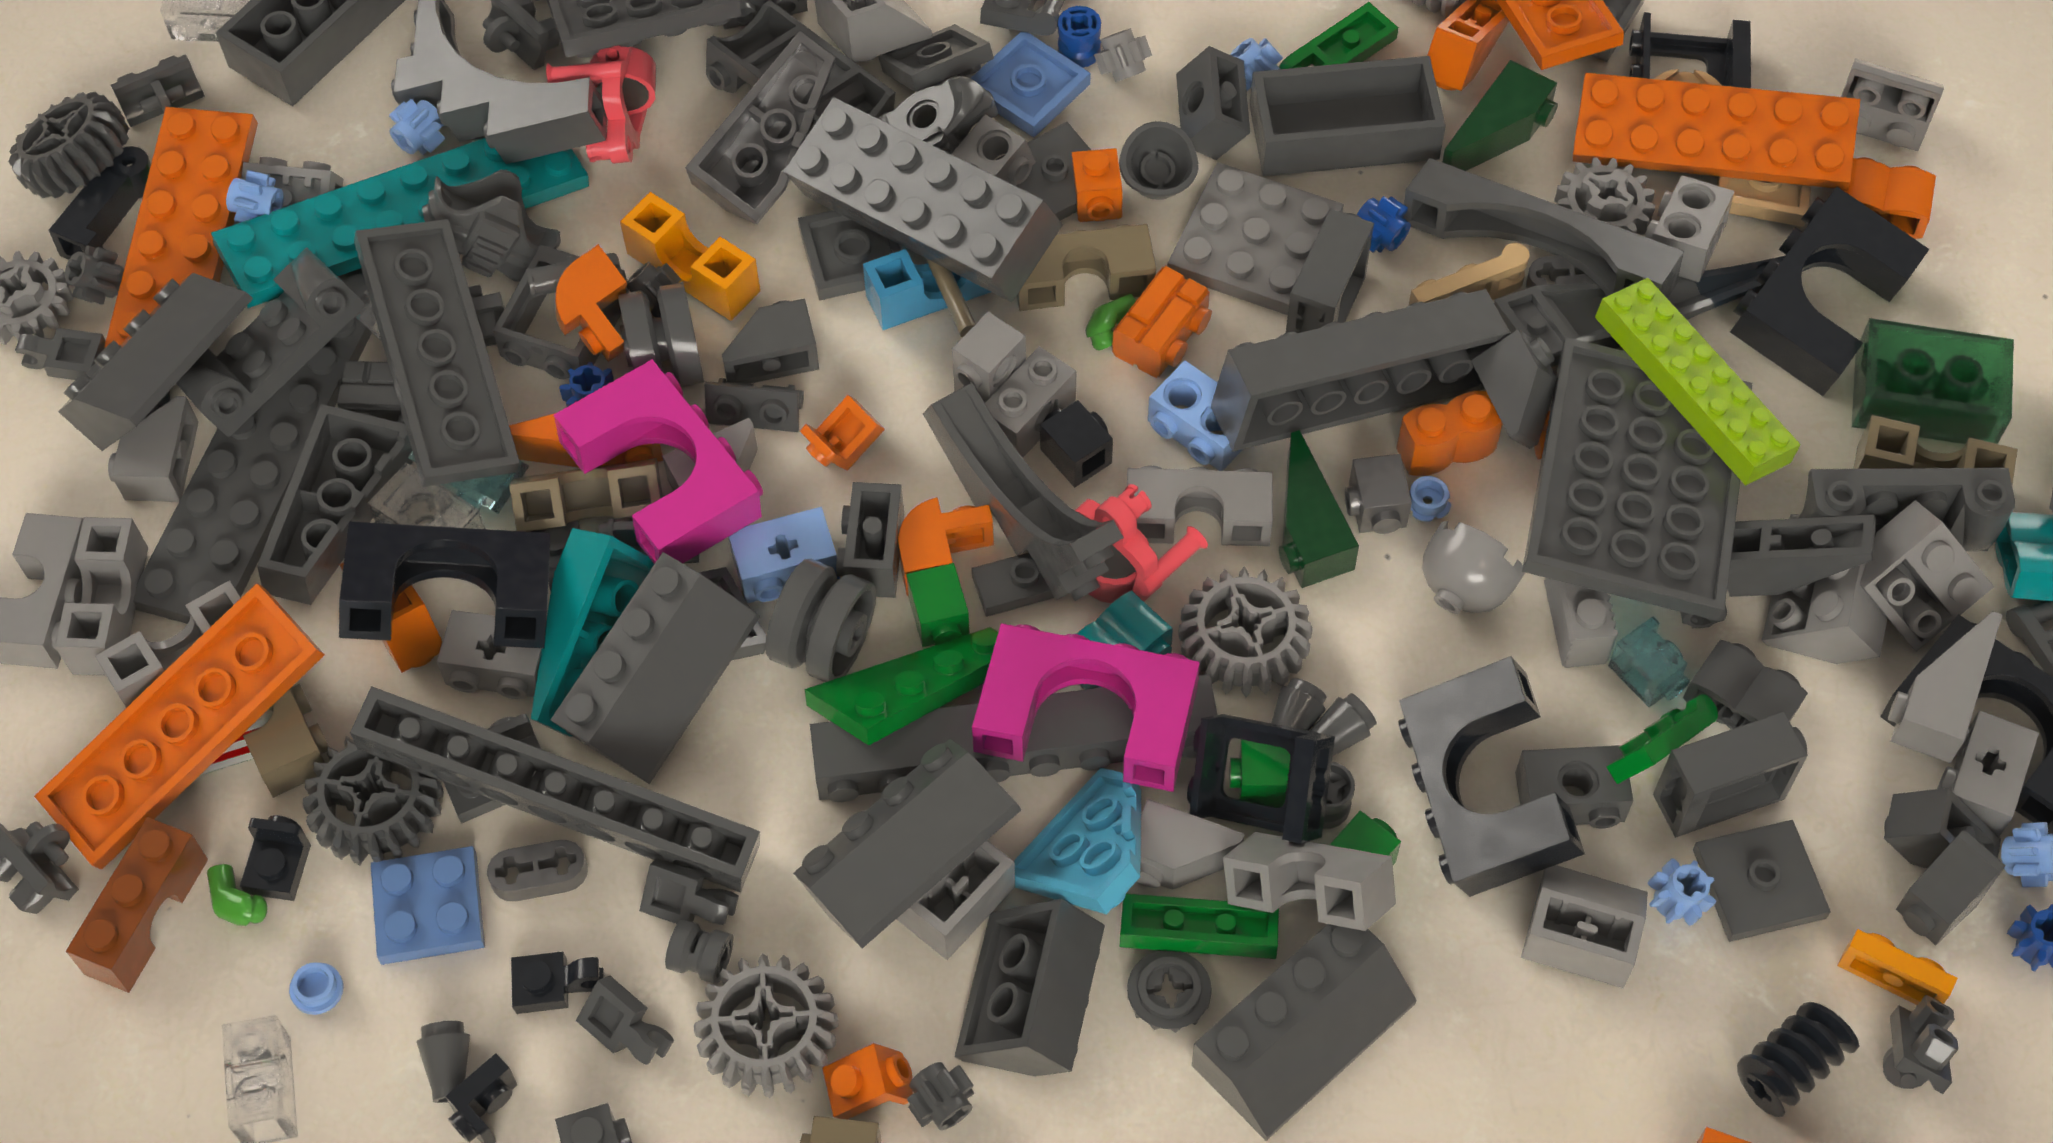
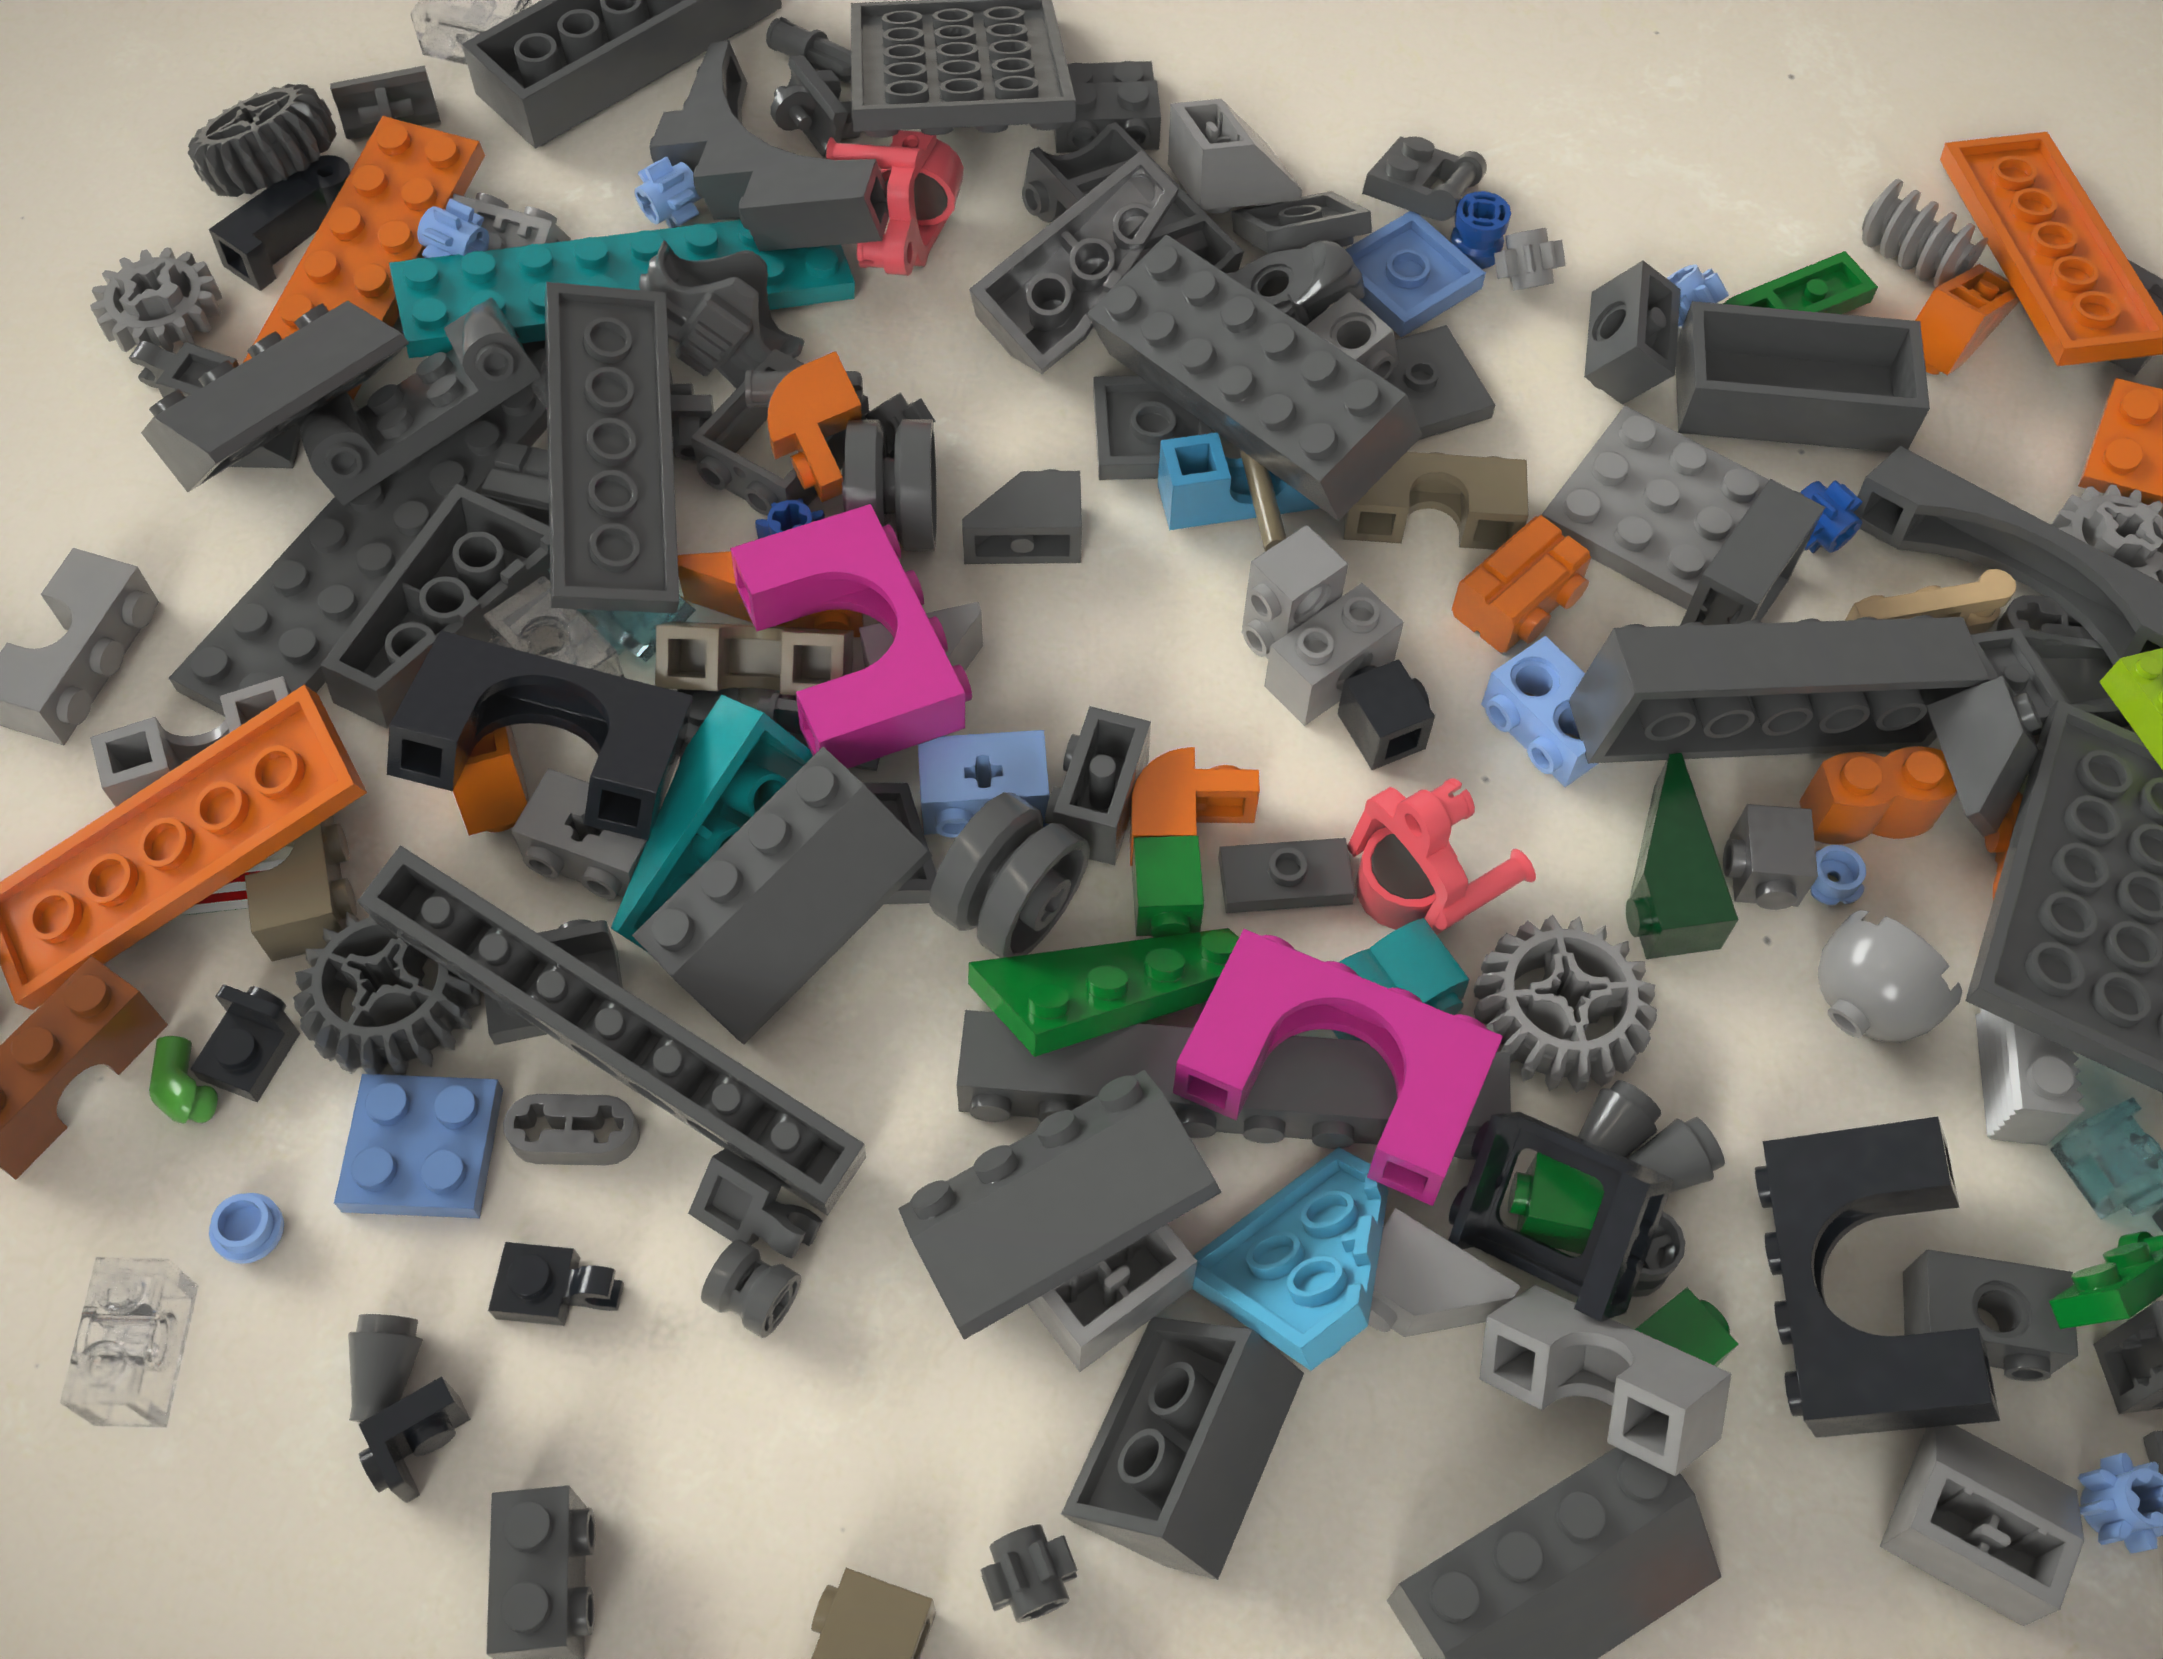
camera: 10 degrees right, 0 degrees up
(94, 274) = (247, 289): dark grey gear -> none
(111, 563) = (156, 627): light grey arch -> none
(156, 454) = (255, 509): light grey slope -> none
(616, 1022) = (618, 1362): dark grey plate -> none
(715, 275) = (977, 424): light orange arch -> none
(745, 1025) = (844, 1419): light grey gear -> none
(765, 406) = (1002, 592): dark grey hinge -> none
(843, 434) = (1091, 646): orange bracket -> none
(867, 1080) = (935, 1525): orange bracket -> none
(1059, 539) = (1344, 835): dark grey arch -> none
(1097, 185) = (1471, 405): orange bracket -> none
(1106, 318) = (1451, 566): bright green arm -> none
(1158, 160) = (1553, 388): dark grey helmet -> none
(1185, 974) = (1400, 1463): dark grey gear -> none
(1197, 927) = (1433, 1403): green plate -> none
(1234, 498) = (1581, 826): light grey arch -> none
(1503, 117) = (2000, 414): dark green slope -> none

